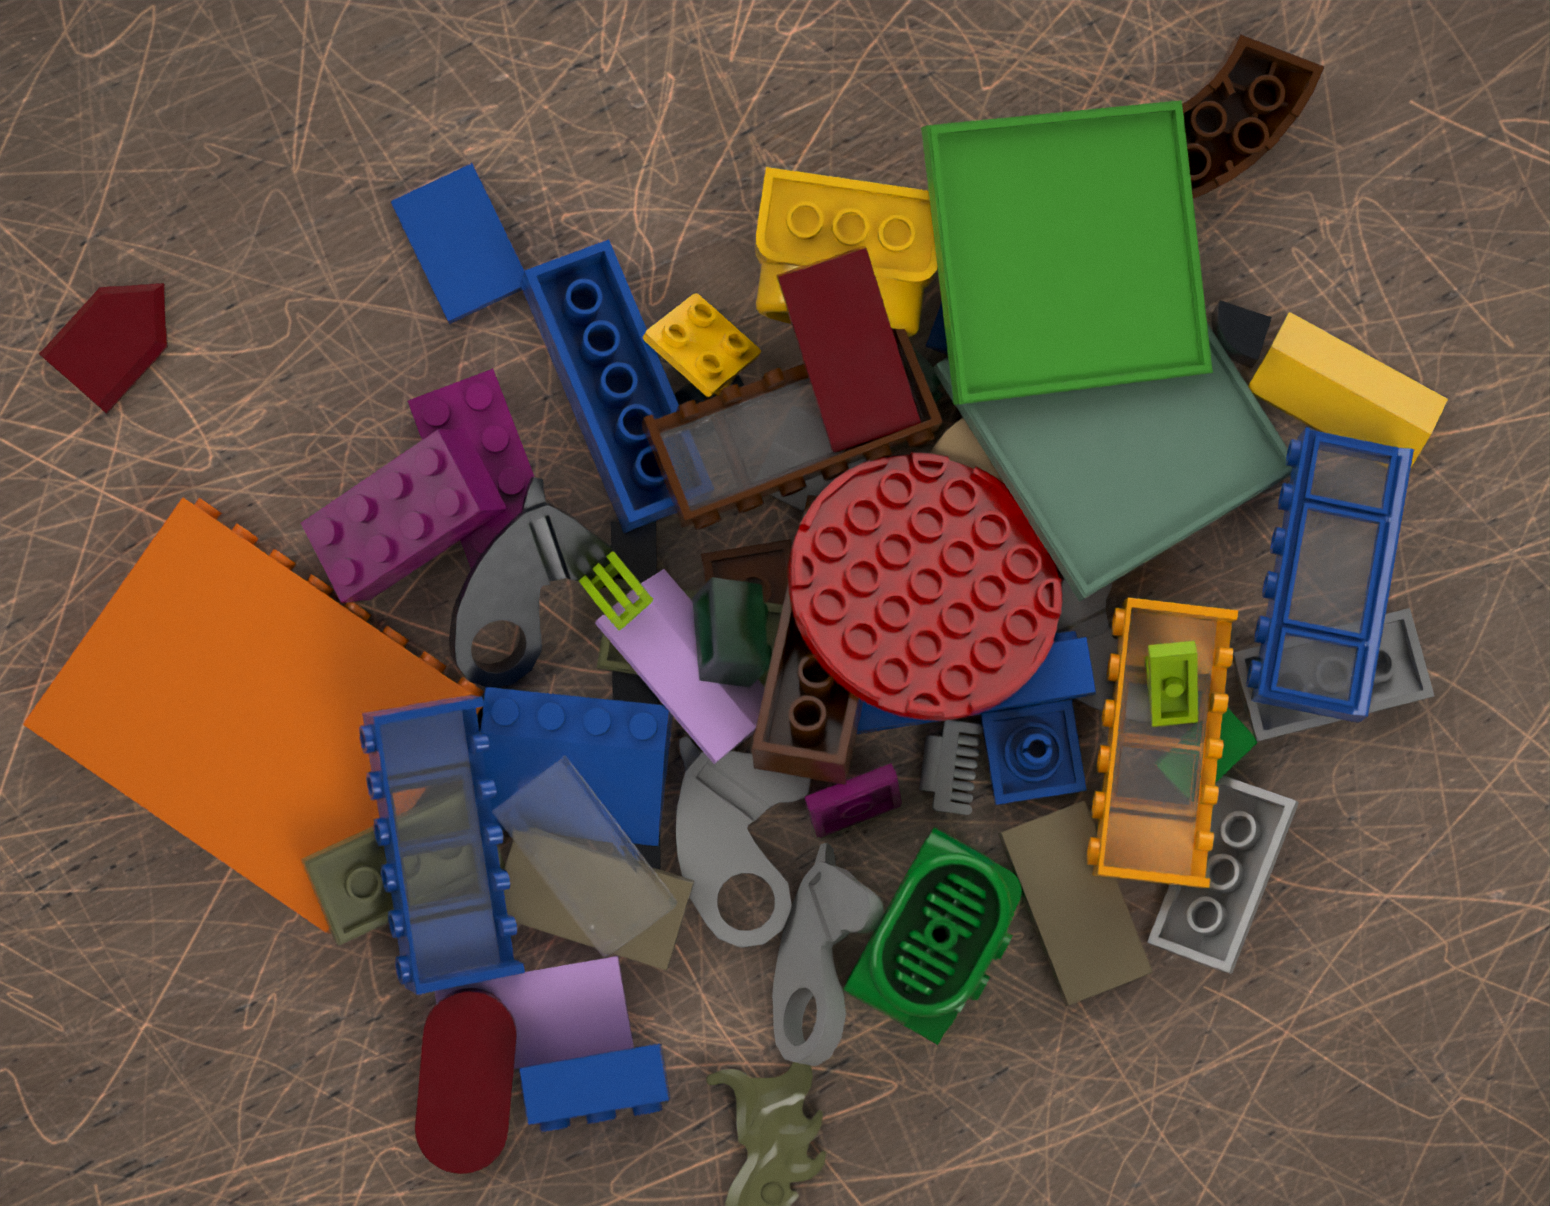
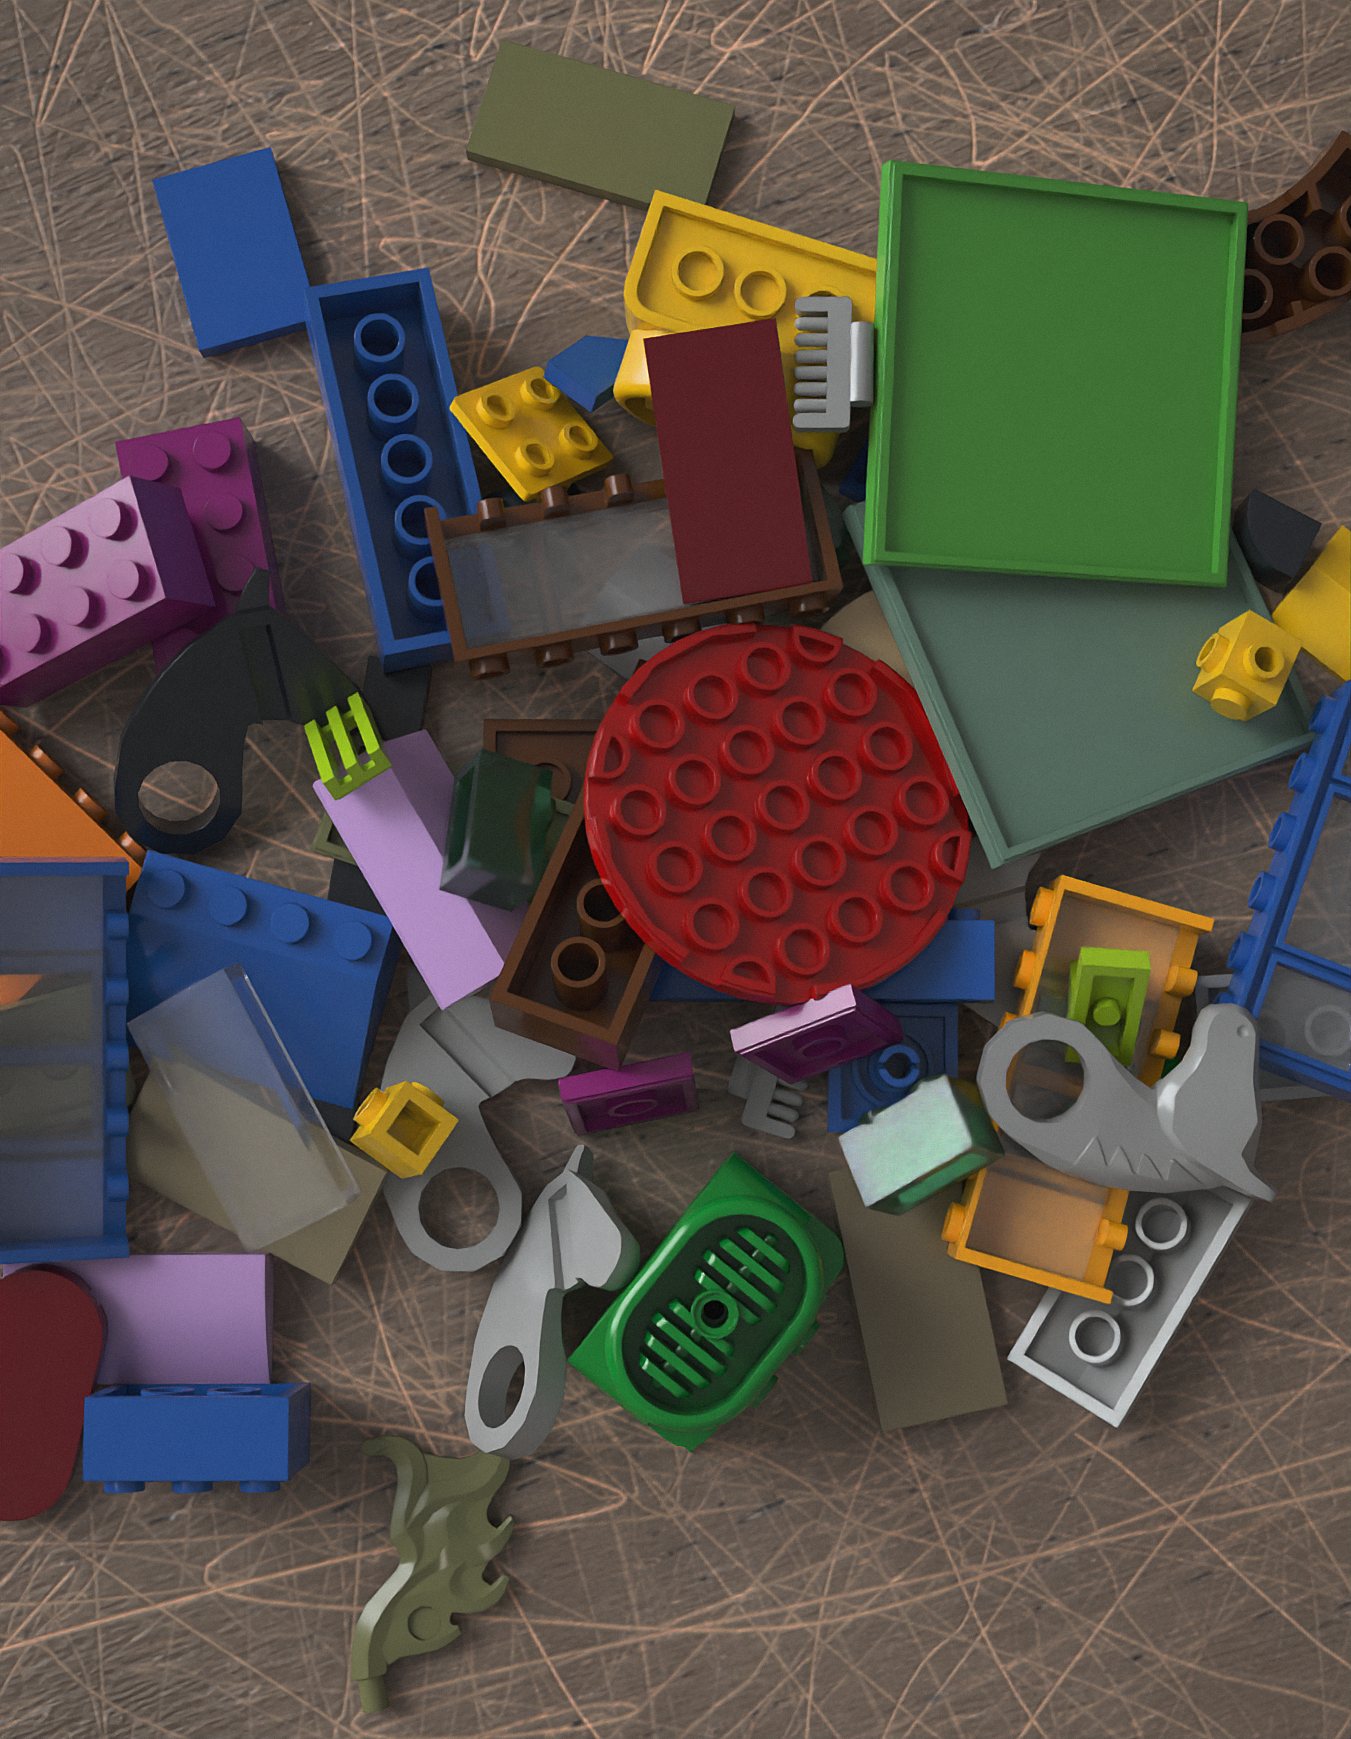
camera: 15 degrees right, 0 degrees up
(700, 850) = (403, 1127): none -> yellow brick
(709, 111) = (597, 129): none -> olive tile
(735, 290) = (587, 370): none -> blue tile
(921, 270) = (848, 364): none -> light grey piece
(978, 737) = (818, 1035): none -> magenta tile
(1061, 800) = (920, 1144): none -> piece
(1233, 428) = (1245, 666): none -> yellow brick
(1233, 765) = (1176, 1136): none -> light grey animal

